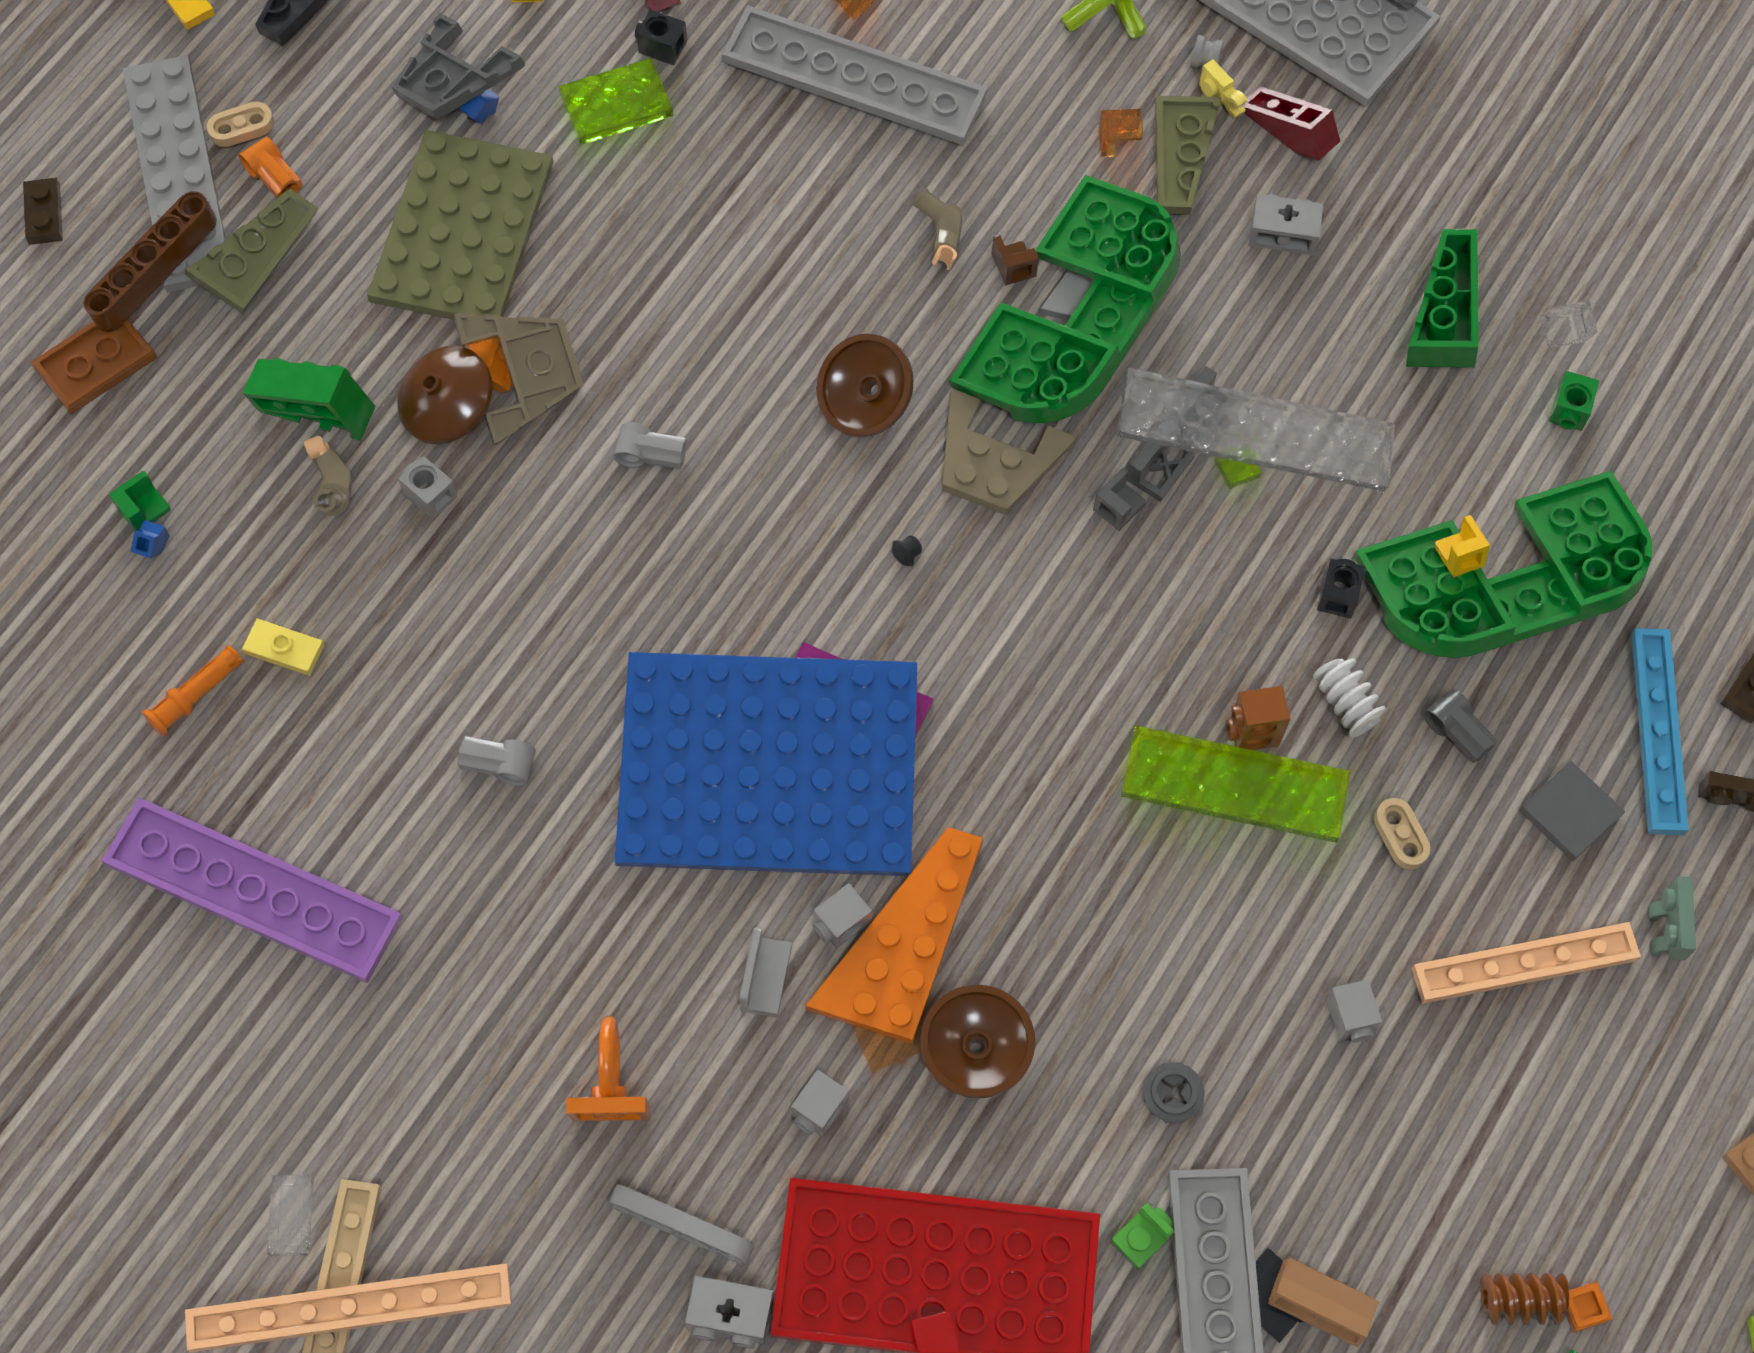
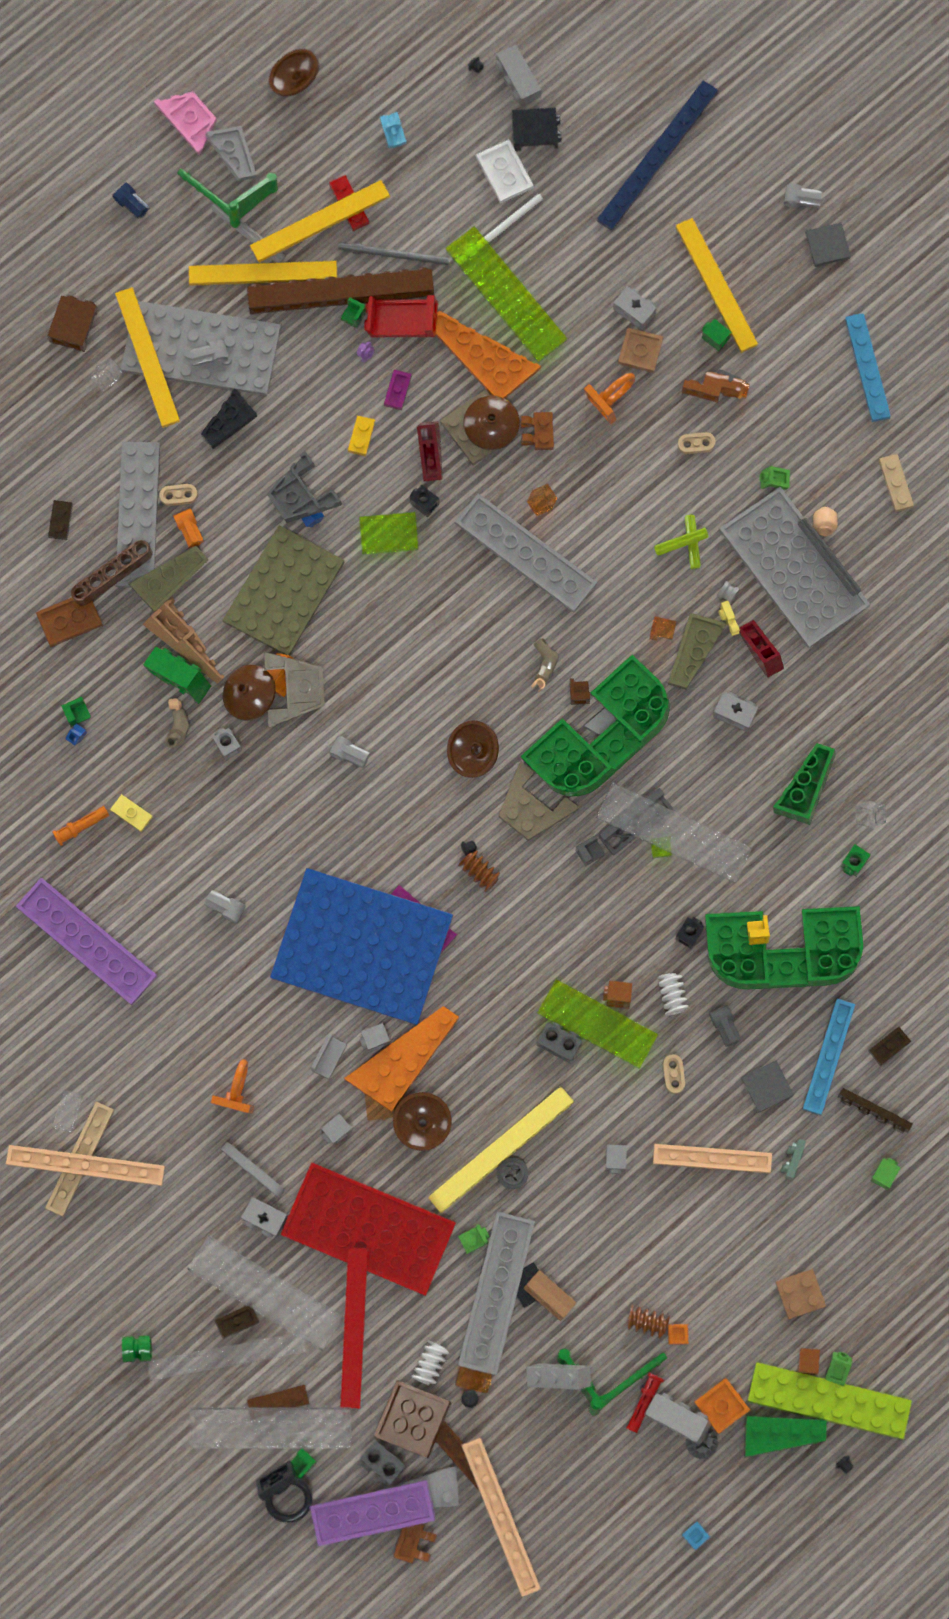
camera: 20 degrees right, 10 degrees up
(284, 331) = (172, 629): none -> medium nougat wedge
(940, 579) = (480, 870): none -> dark orange piece
(1136, 1057) = (500, 1150): none -> light yellow beam
(1178, 843) = (556, 1047): none -> dark grey brick

